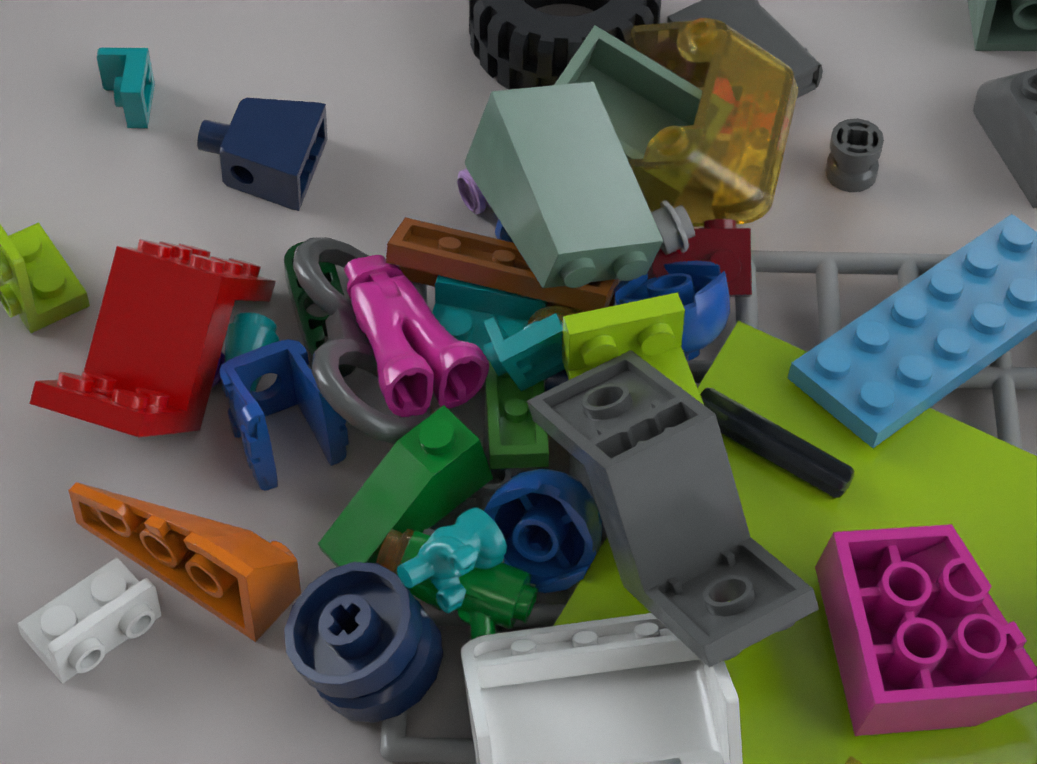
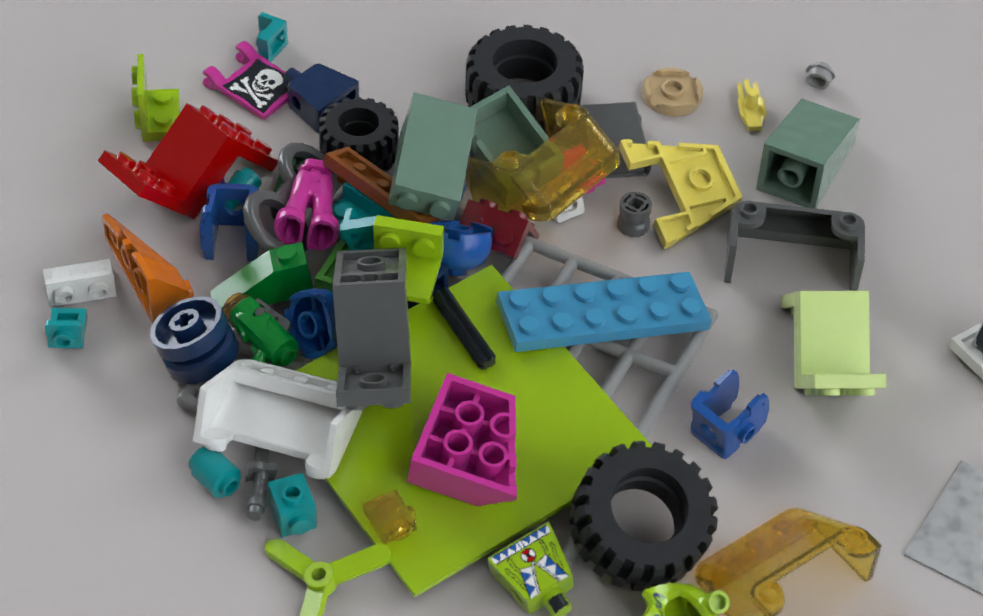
camera: 25 degrees right, 5 degrees down
(127, 710) = (66, 328): none -> teal bracket
(150, 169) = (254, 86): none -> flag
(373, 164) = (362, 126): none -> black tyre
(453, 552) = (254, 309): teal piece -> none
(674, 227) = (480, 202): light grey plate -> none
(904, 69) = (696, 178): none -> light yellow wing

